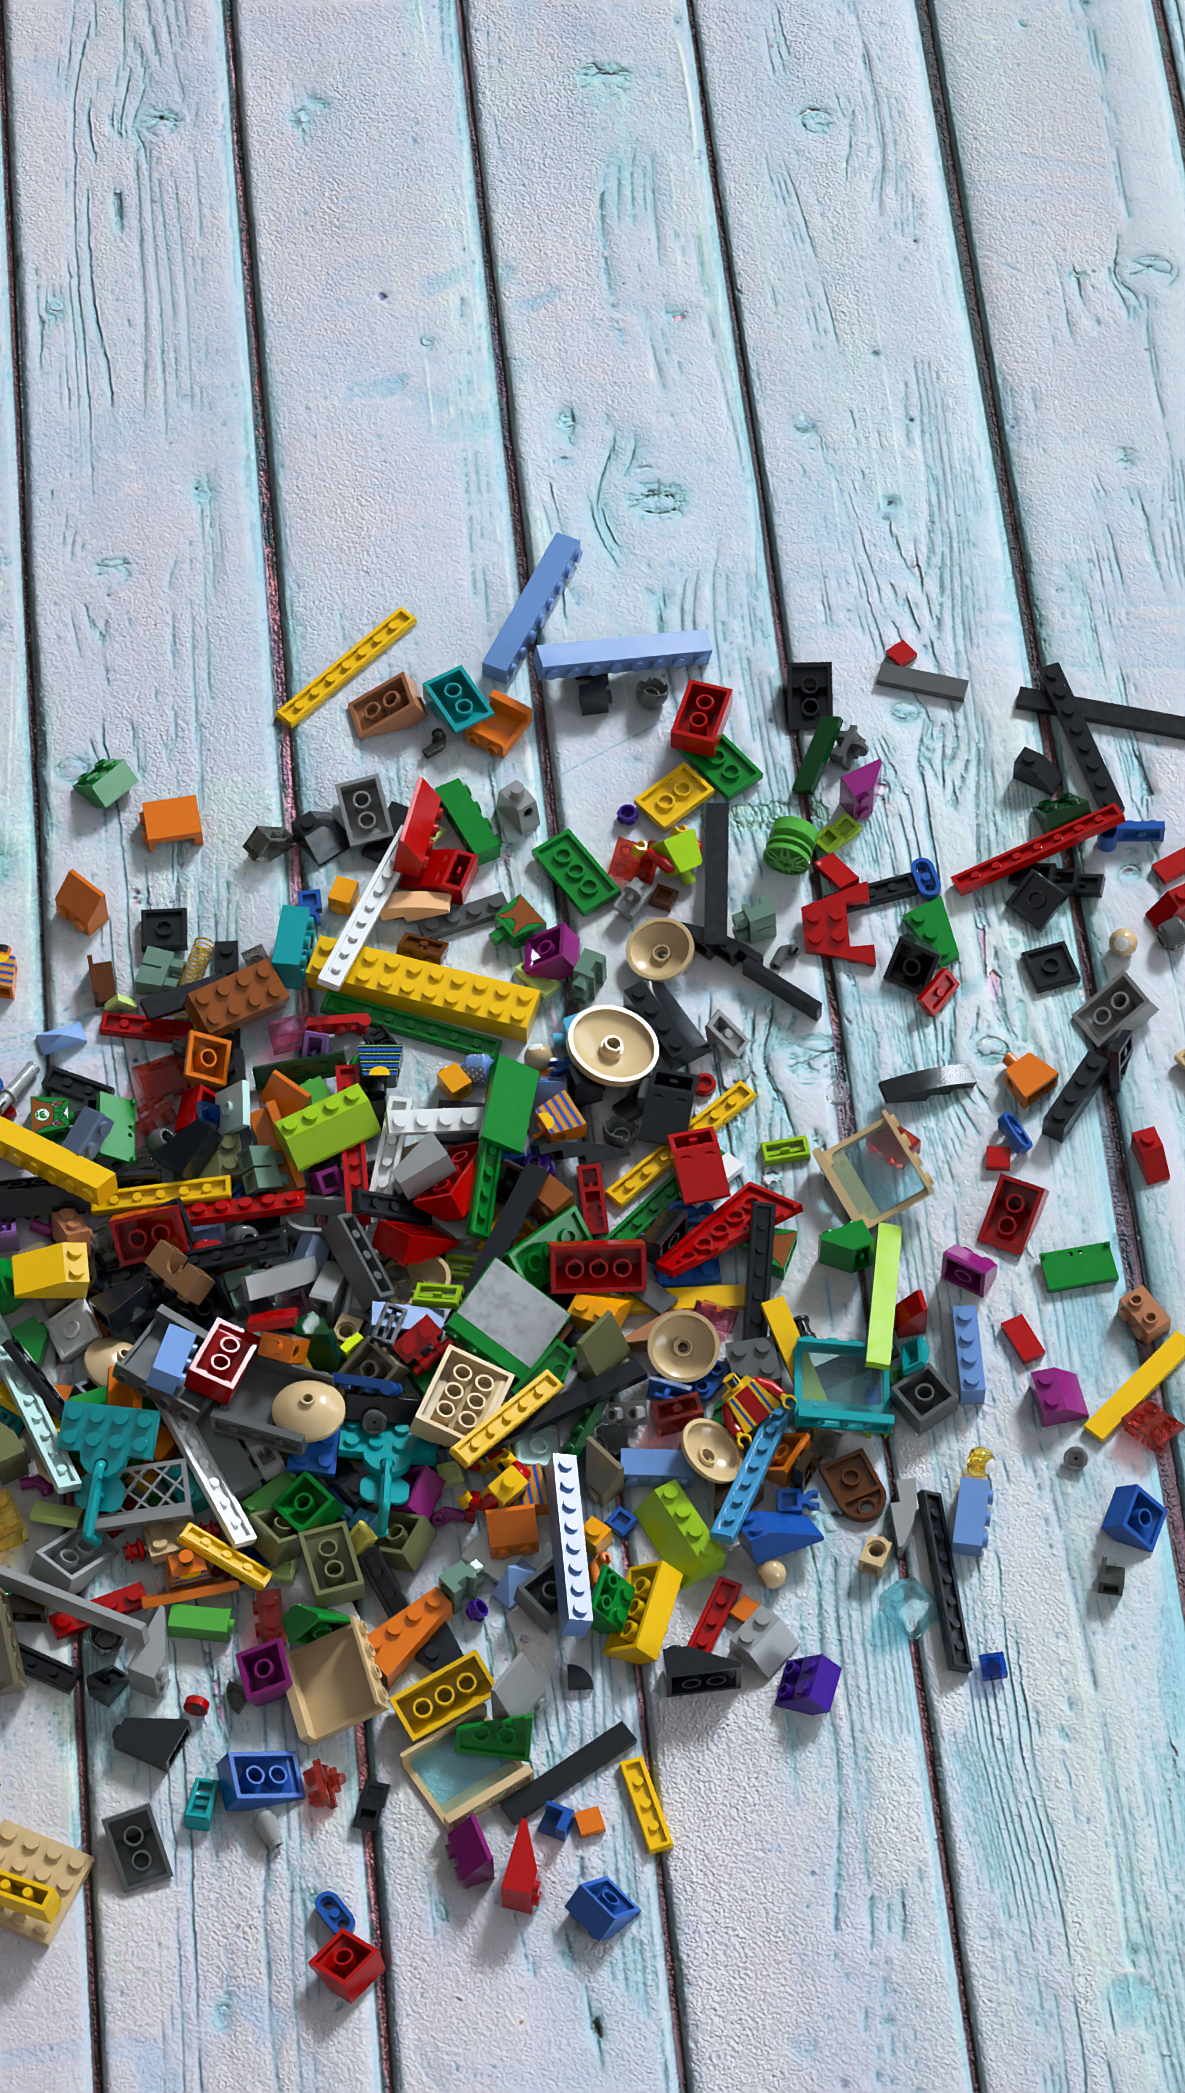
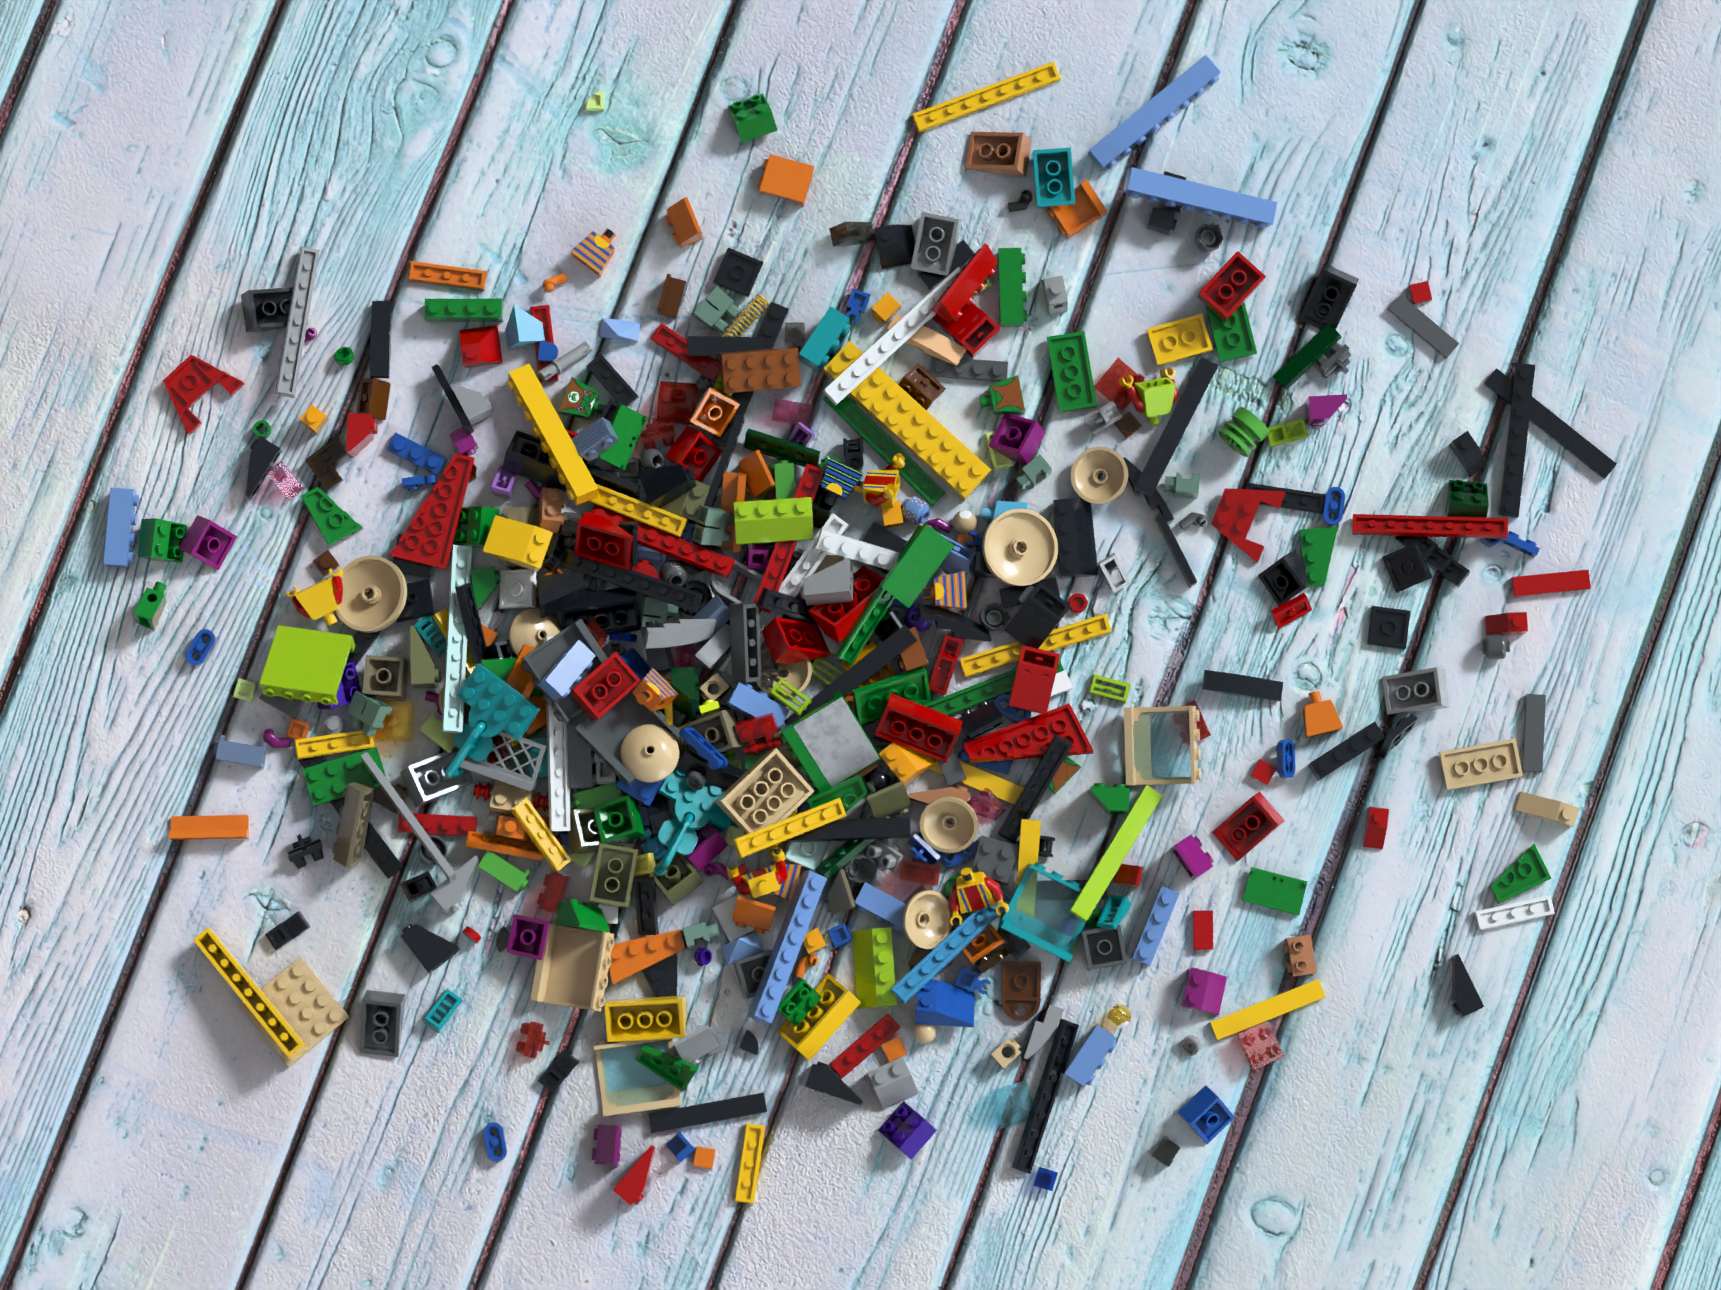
camera: 20 degrees right, 25 degrees up
(120, 1002) = (676, 322): yellowish green tile -> none
(167, 1264) = (604, 577): medium nougat arch -> none
(208, 1111) = (694, 459): clear blue plate -> none
(234, 1107) = (713, 464): light aqua plate -> none
(259, 1779) = (490, 1014): blue slope -> none
(267, 1827) = (478, 1054): light grey cone -> none
(272, 1320) = (655, 669): red tile -> none
(338, 1024) = (828, 424): red plate -> none
(347, 1965) = (484, 1186): red slope -> none
(382, 1340) = (729, 720): tile -> none
(429, 1057) = (882, 485): none -> torso
(601, 1908) = (681, 1228): blue slope -> none
(627, 810) = (1136, 333): dark purple plate -> none
(836, 872) = (1268, 468): red tile -> none
(1123, 942) = (1452, 636): tan piece -> none

